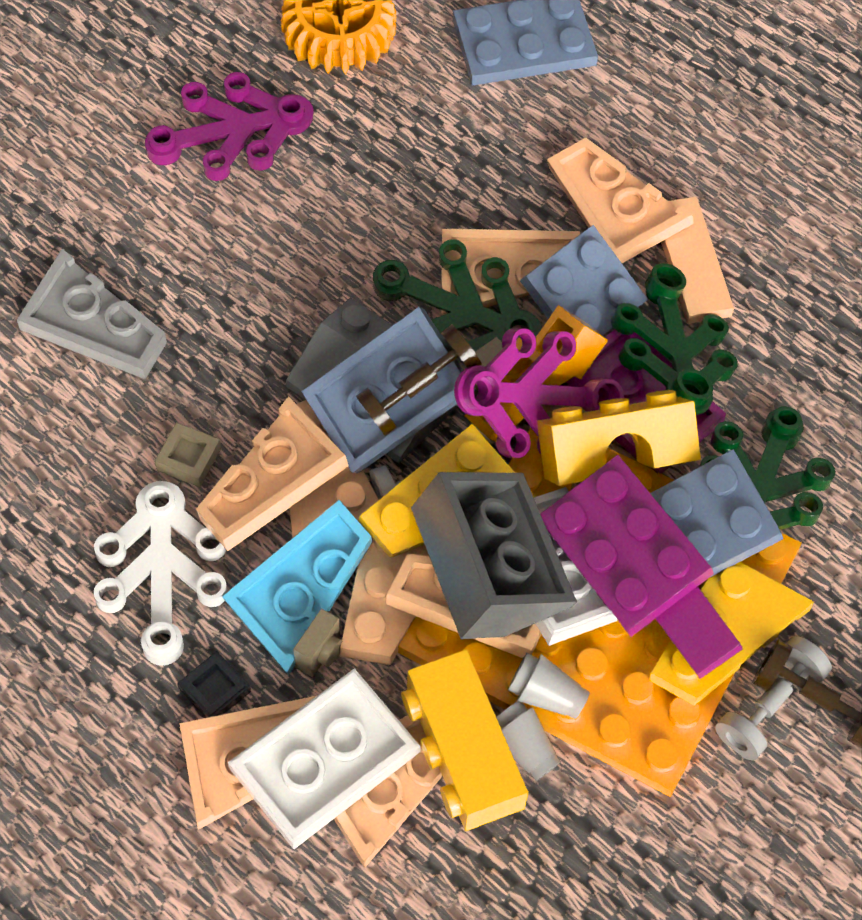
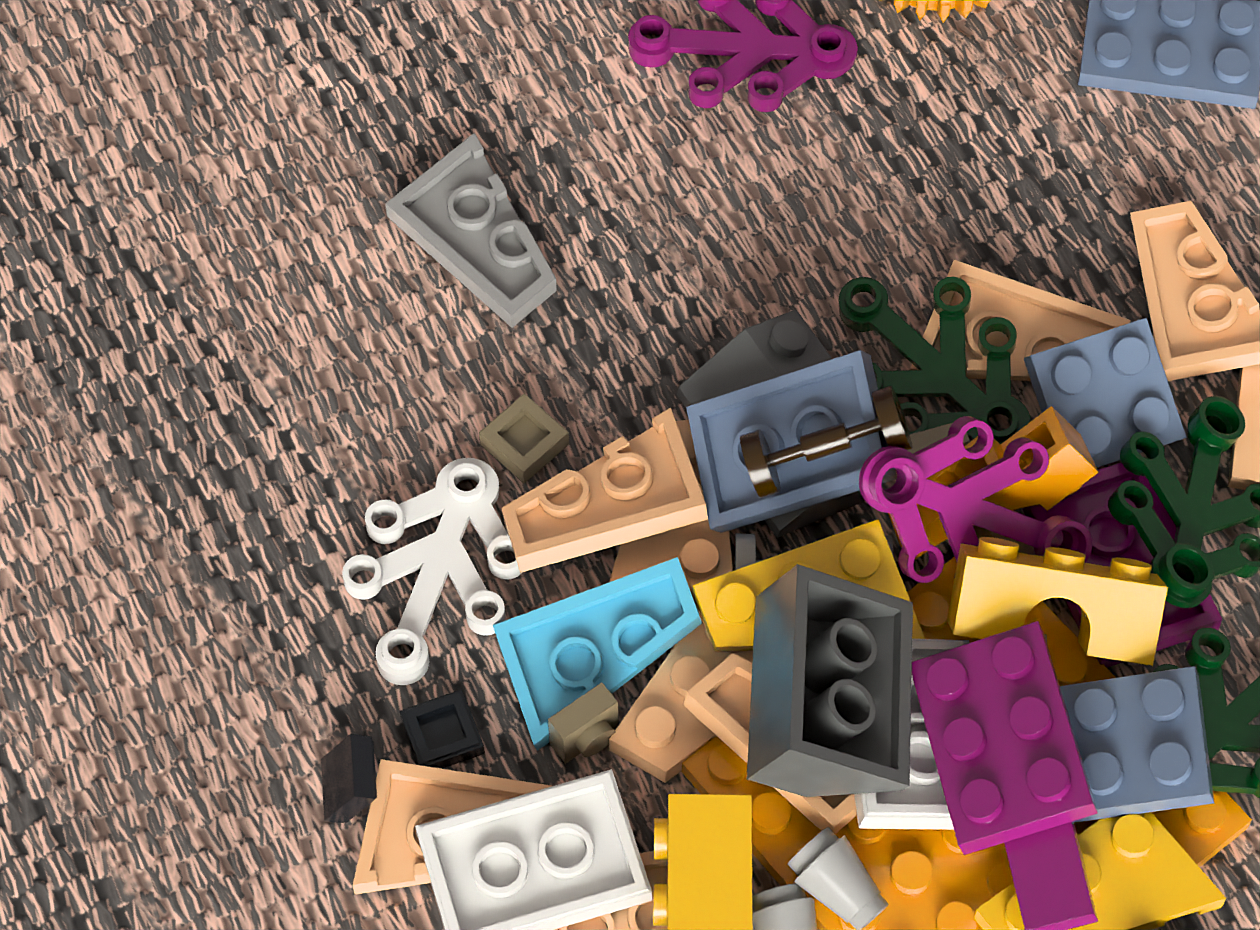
camera: 25 degrees right, 0 degrees up
(160, 746) = (348, 778): none -> black tile

